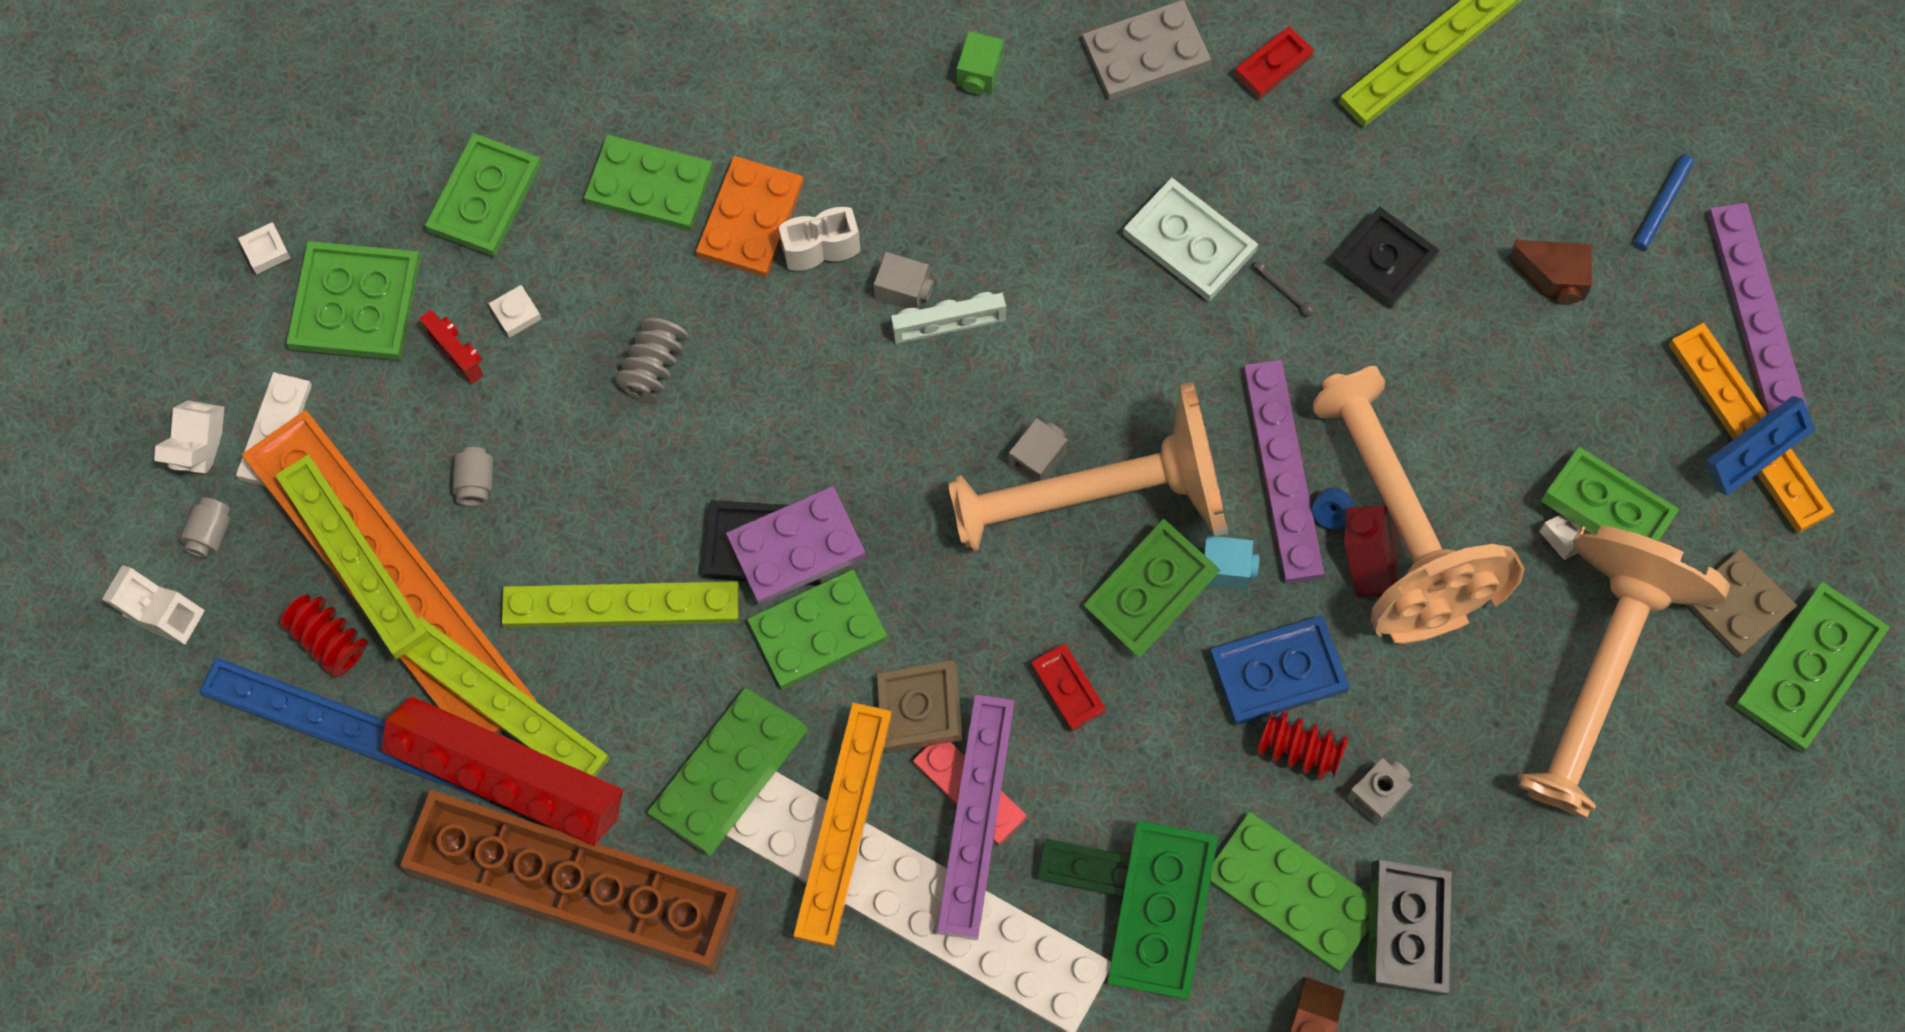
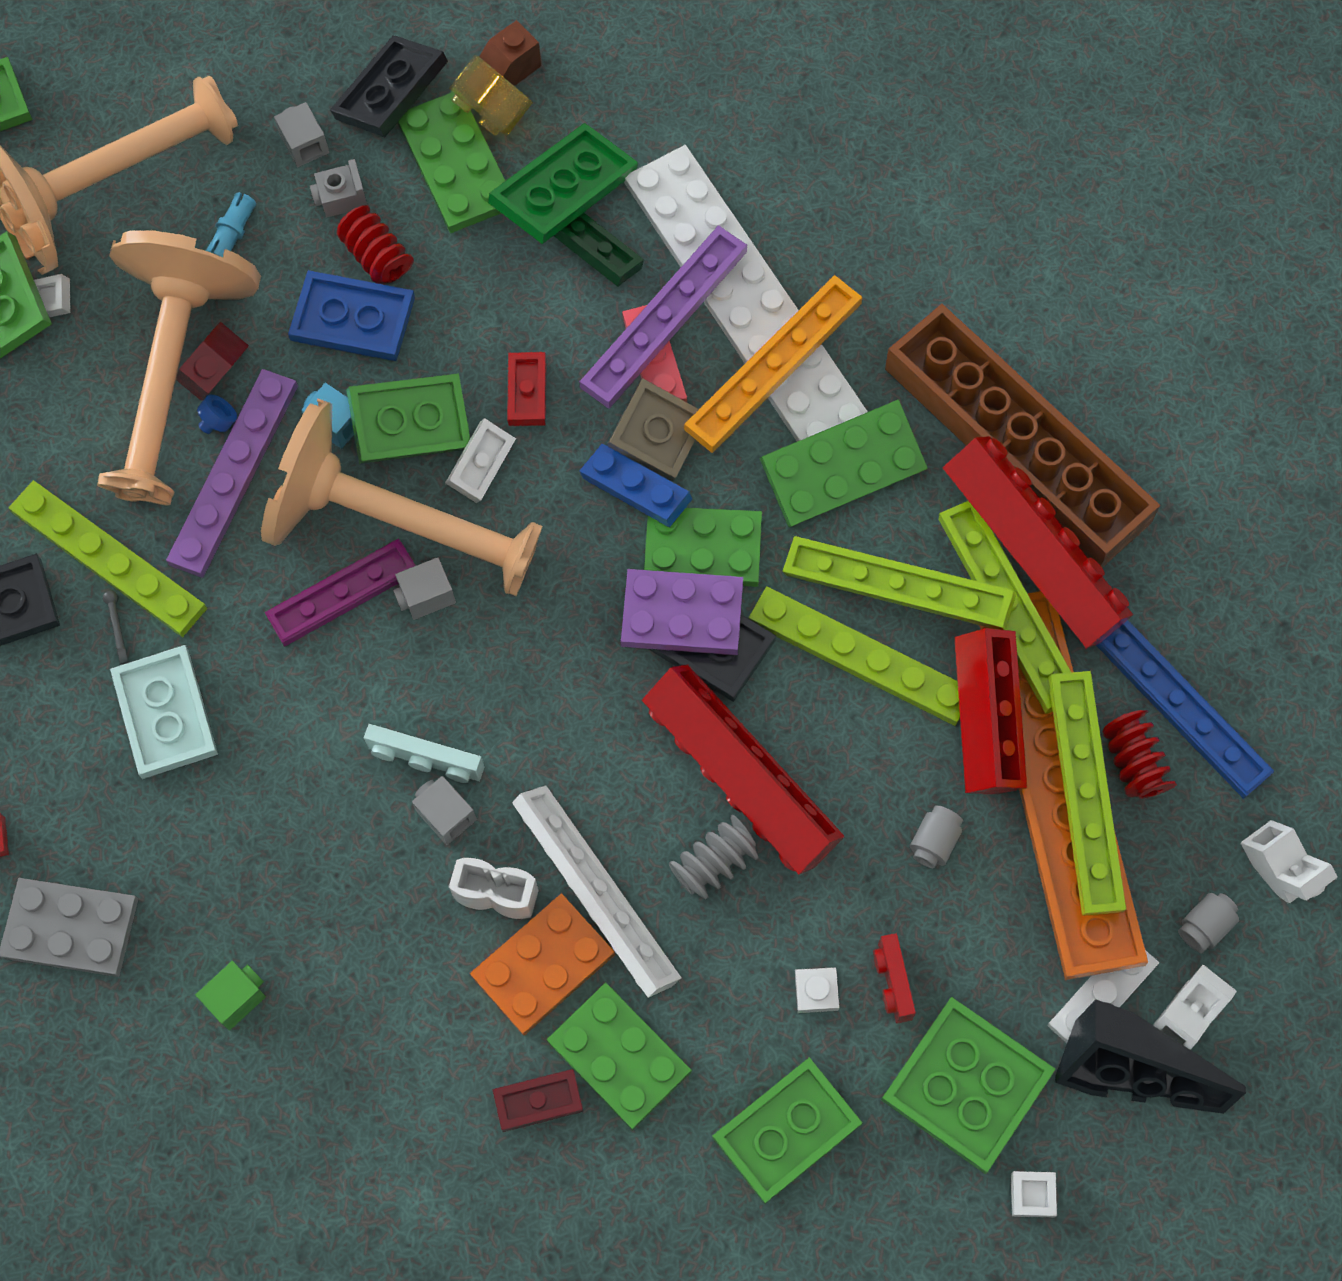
camera: 150 degrees left, 0 degrees up
(233, 379) = (1128, 1054): none -> black wedge
(472, 595) = (990, 712): none -> red brick
(612, 669) = (900, 583): none -> lime plate
(668, 441) = (742, 769): none -> red brick
(692, 116) = (537, 1100): none -> dark red plate
(739, 288) = (596, 891): none -> white plate
(906, 643) = (636, 485): none -> blue plate
(1065, 593) = (480, 460): none -> white plate
(1115, 412) = (339, 593): none -> magenta tile
(1296, 963) = (490, 96): none -> clear yellow brick
(1336, 339) = (108, 558): none -> lime plate
(1457, 696) = (232, 224): none -> medium azure pin
(1460, 828) = (301, 134): none -> light grey brick

